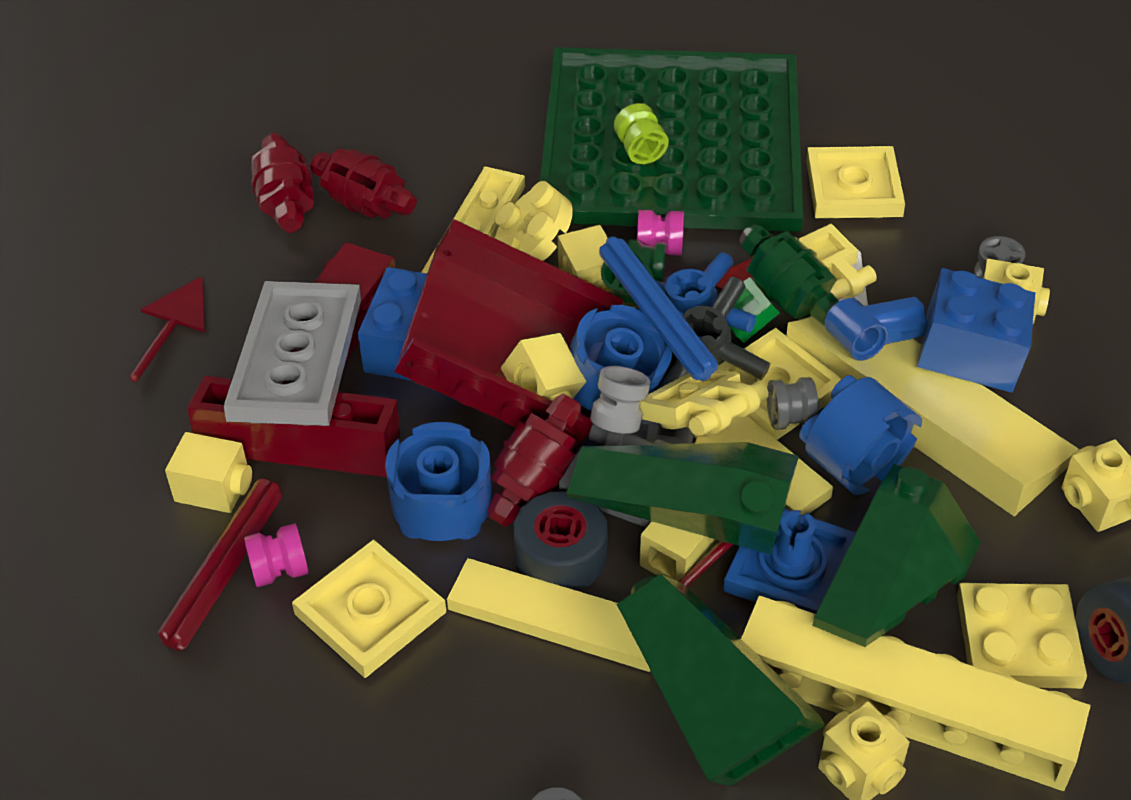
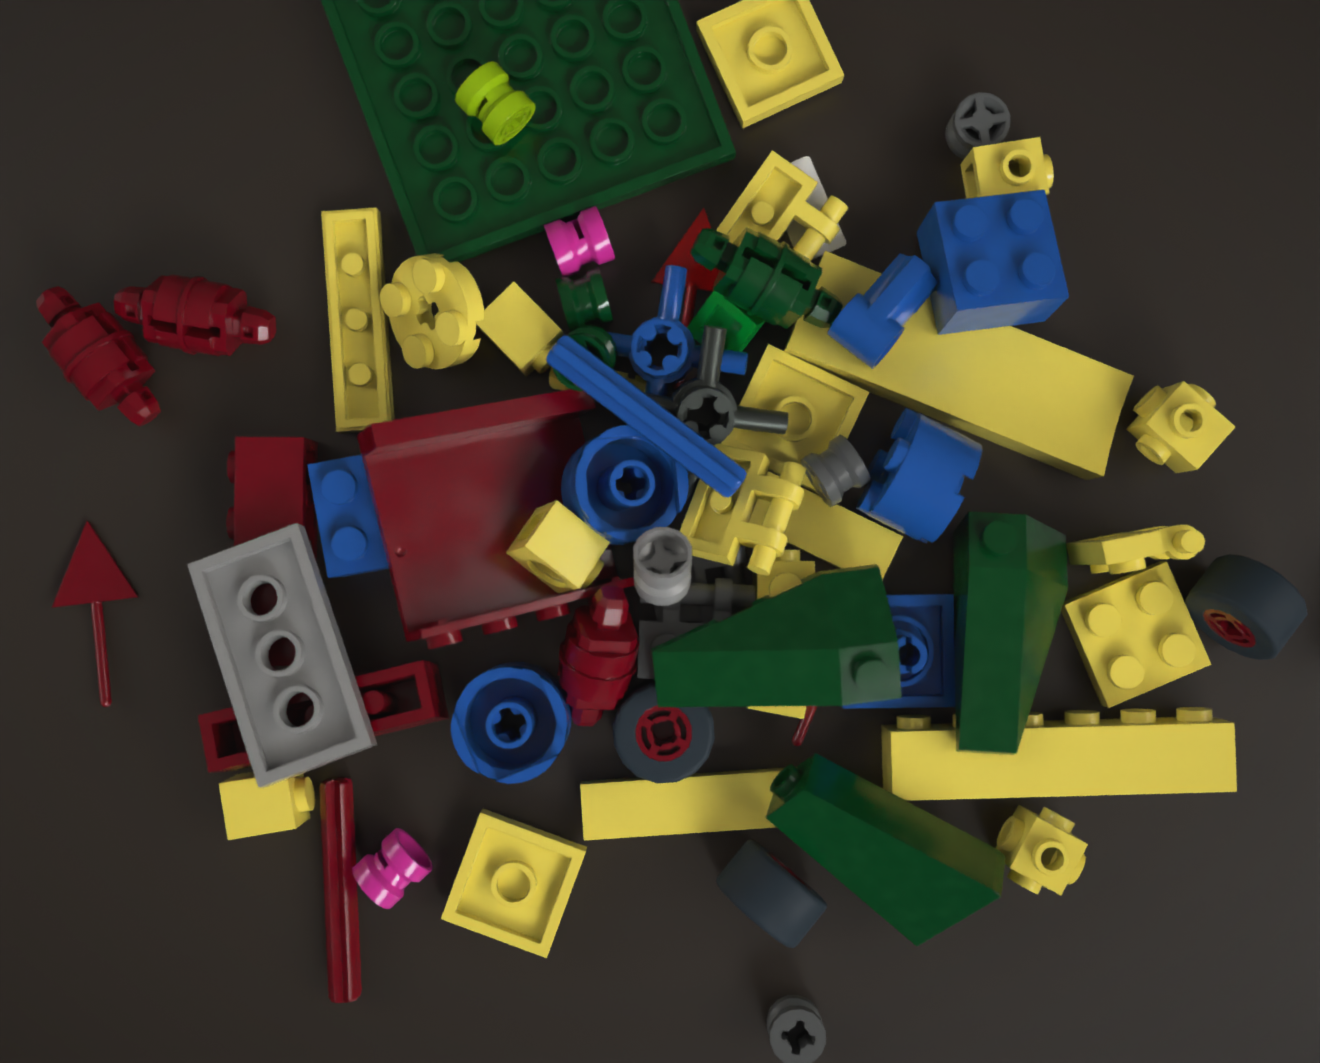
camera: 25 degrees left, 40 degrees up
(592, 688) = (771, 894): none -> black wheel
(1018, 536) = (1127, 550): none -> light yellow plate

